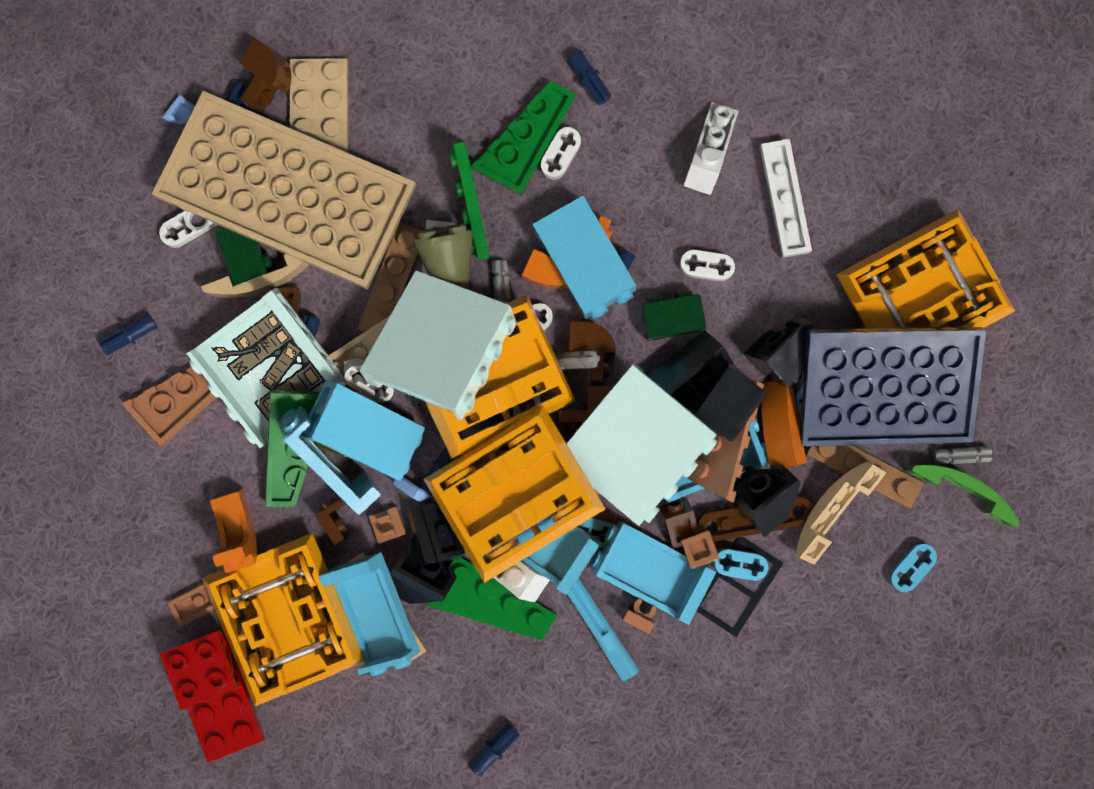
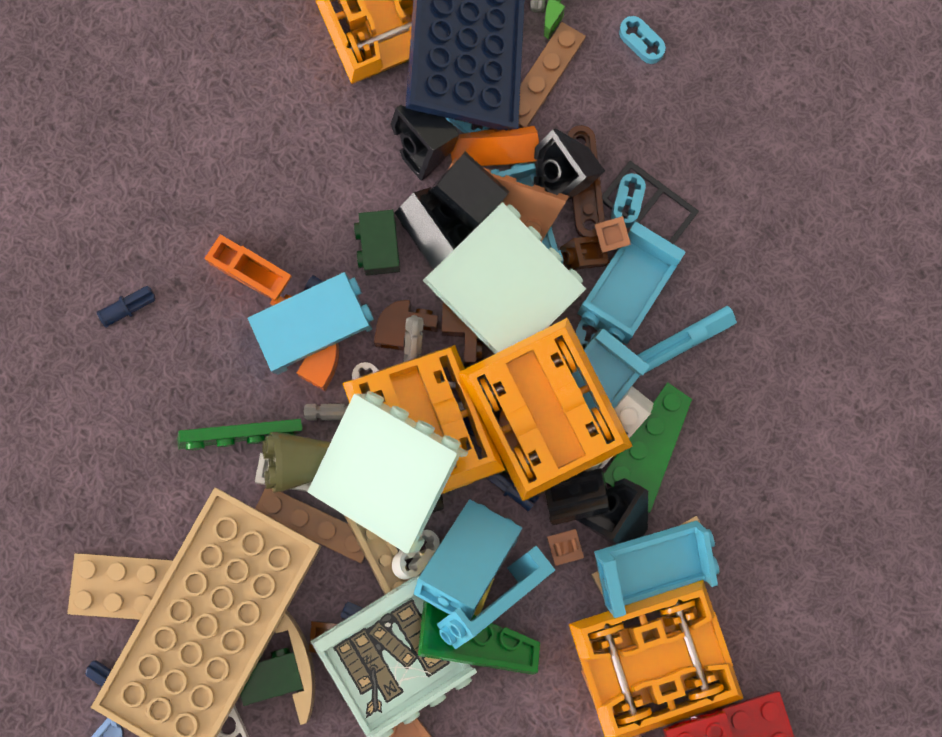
camera: 85 degrees left, 5 degrees down
(236, 531) = (561, 706): orange arch -> none
(270, 72) = (81, 633): reddish brown brick -> none
(333, 526) = (563, 602): reddish brown bracket -> none
(412, 490) = (532, 517): light blue tile -> none
(493, 750) = (798, 456): dark blue axle -> none
(521, 147) = (187, 378): green wing -> none
(555, 149) = (196, 347): white beam -> none
(635, 191) = (247, 267): none -> orange slope
(639, 619) = (676, 300): nougat tile -> none
(706, 272) = (323, 205): white beam -> none
(711, 148) = (213, 191): white slope -> none
(785, 198) = (270, 125): white plate -> none
(831, 505) = (577, 108): tan slope -> none

